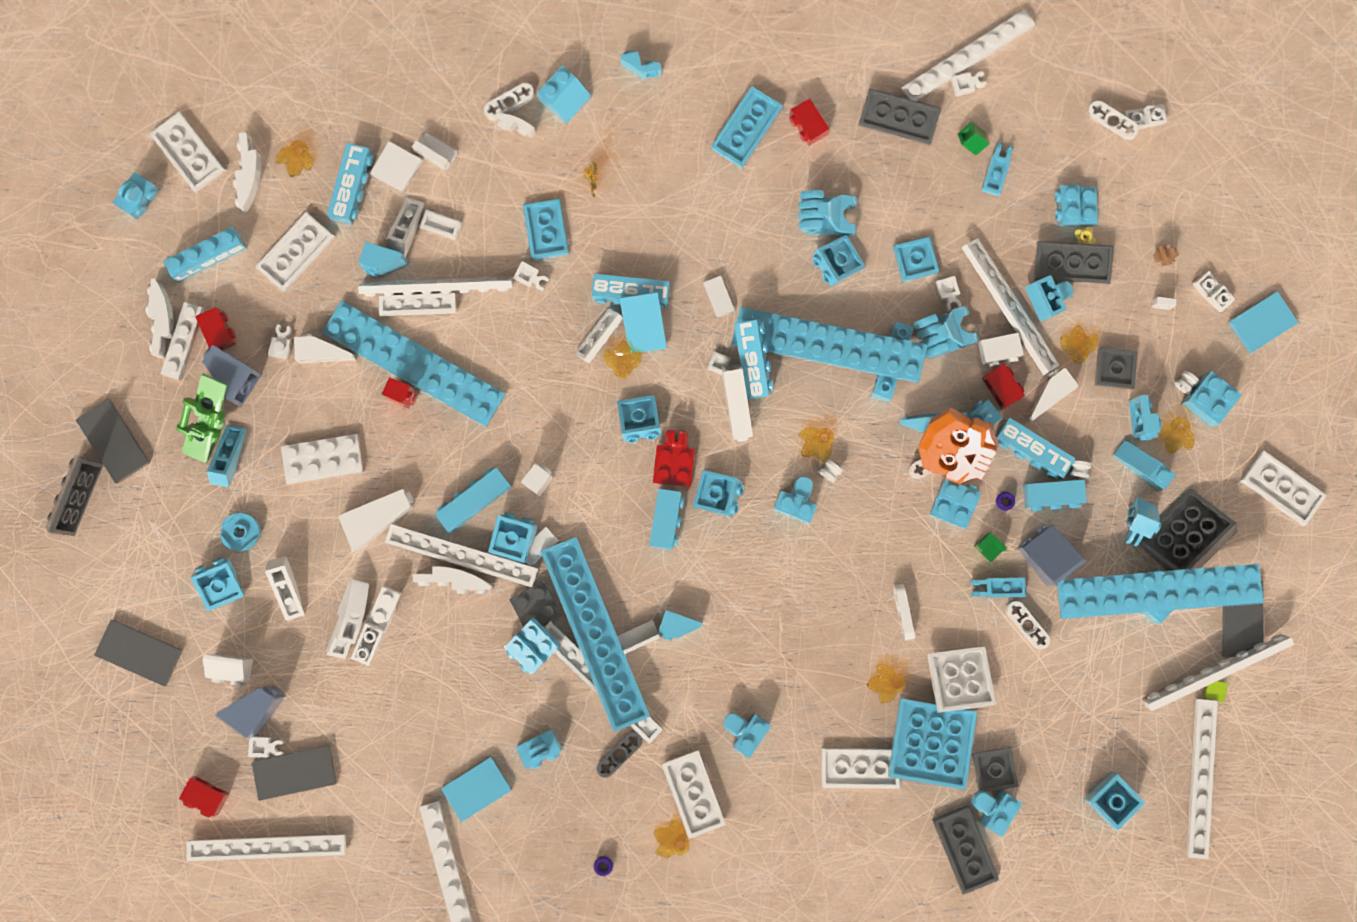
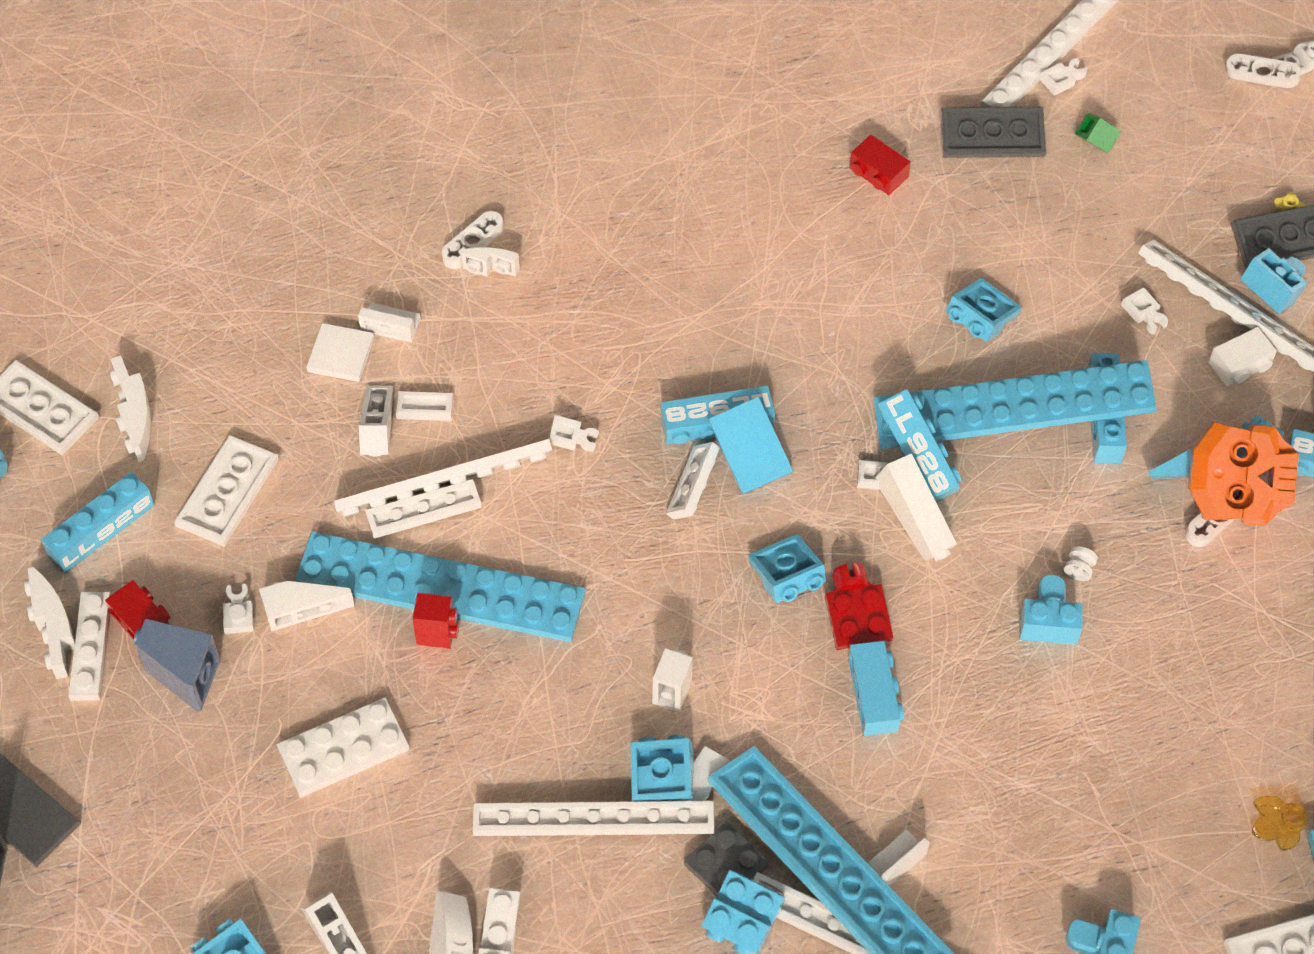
camera: 15 degrees left, 25 degrees down
(210, 418) = (165, 726): piece -> none
(226, 456) = (198, 780): medium azure slope -> none
(251, 534) = (249, 896): medium azure plate -> none
(295, 161) = (195, 379): clear yellow plate -> none
(350, 183) = (283, 386): medium azure brick -> none
(372, 519) = (445, 803): white slope -> none
(380, 260) = (358, 460): medium azure slope -> none
(461, 580) = (602, 850): white slope -> none
(473, 500) = (585, 738): medium azure brick -> none
(545, 229) = (573, 375): medium azure tile -> none
(563, 94) = (543, 212): medium azure slope -> none
(591, 174) = (614, 292): clear yellow plate -> none
(622, 356) = (735, 497): clear yellow plate -> none
(632, 62) = (625, 157): medium azure slope -> none
(676, 625) = (947, 824): medium azure slope -> none
(718, 297) = (840, 394): white tile -> none
(718, 493) = (937, 633): medium azure plate -> none
(746, 127) = (800, 191): medium azure plate -> none
(813, 443) = (1043, 538): clear yellow plate -> none
(825, 214) = (945, 260): medium azure piece -> none
(903, 611) = (1261, 717): white beam -> none
(916, 259) = (1083, 285): medium azure tile -> none
(944, 333) = (1166, 354): medium azure piece -> none
(955, 503) = (1268, 558): medium azure plate -> none
(997, 171) = (1144, 161): medium azure hinge -> none
(1003, 386) = (1267, 398): red brick -> none
(1076, 206) = (1261, 174): medium azure plate -> none

